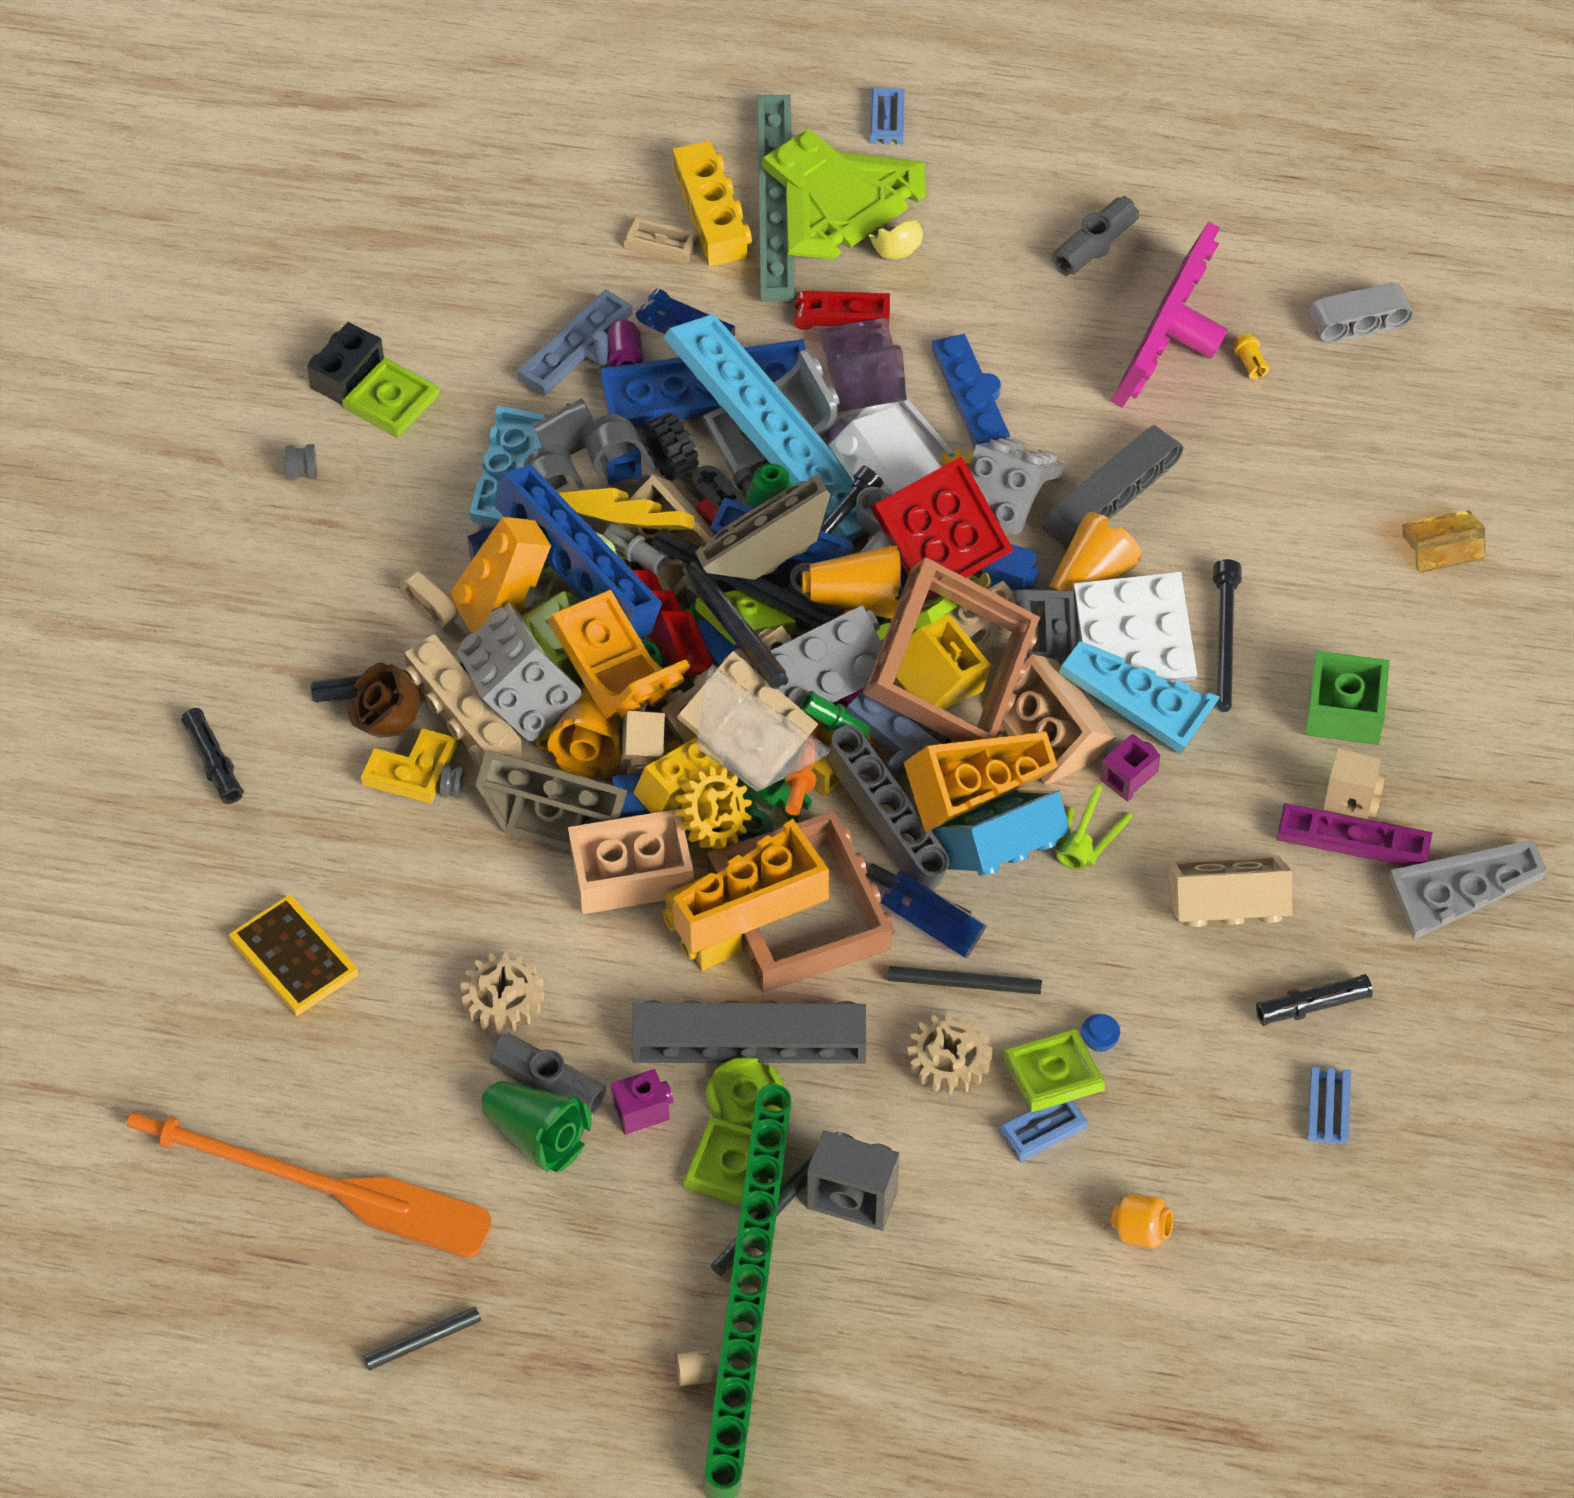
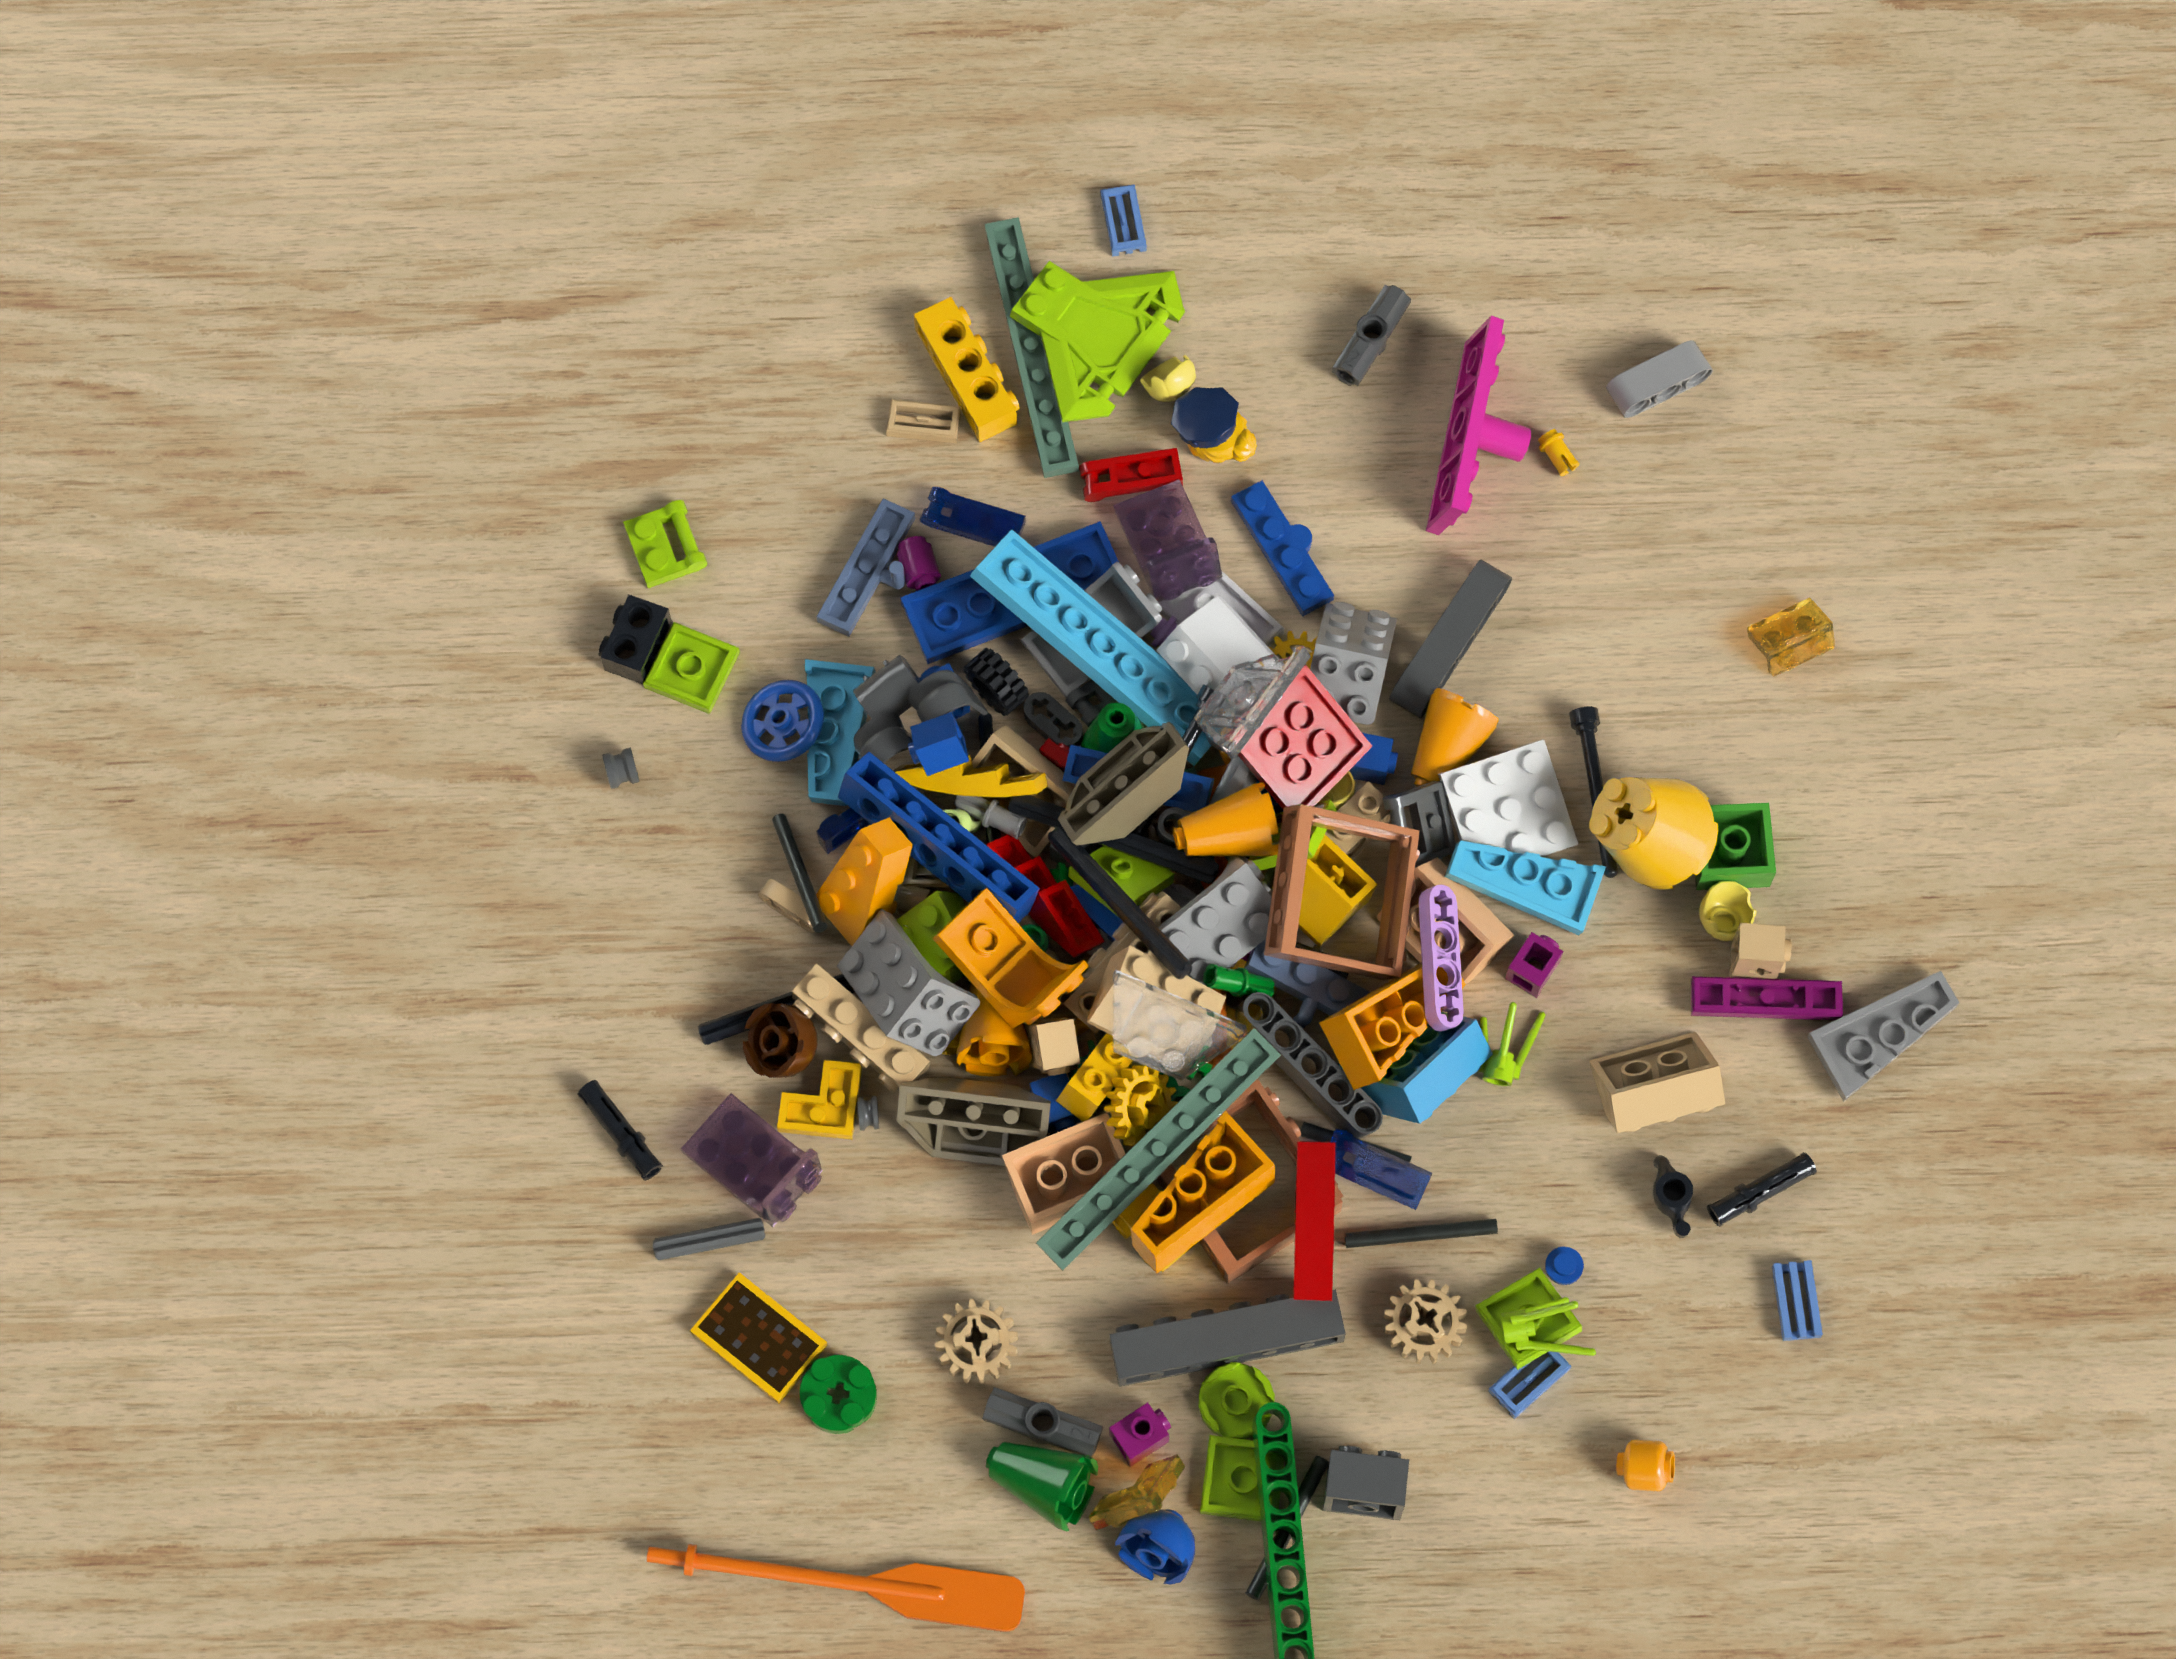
camera: 10 degrees left, 15 degrees up
(270, 862) = (708, 1239): none -> dark grey axle
(332, 801) = (753, 1160): none -> clear purple bracket
(350, 997) = (826, 1375): none -> green plate
(384, 301) = (653, 547): none -> lime plate
(442, 570) = (799, 873): none -> pearl dark grey bar
(463, 449) = (769, 697): none -> blue plate
(597, 468) = (938, 744): none -> blue brick
(626, 1151) = (1142, 1497): none -> clear yellow plate
(631, 1199) = (1158, 1545): none -> blue cylinder
(718, 842) = (1158, 1149): none -> sand green plate
(857, 934) = (1314, 1221): none -> red slope
(898, 470) = (1247, 698): none -> clear wing
(927, 281) = (1212, 426): none -> dark blue piece
(1042, 733) = (1446, 958): none -> lavender beam
(1042, 1064) = (1520, 1325): none -> lime plant
(1223, 987) = (1672, 1194): none -> black piece
(1269, 658) = (1655, 828): none -> yellow cone
(1322, 746) = (1725, 908): none -> light yellow hair

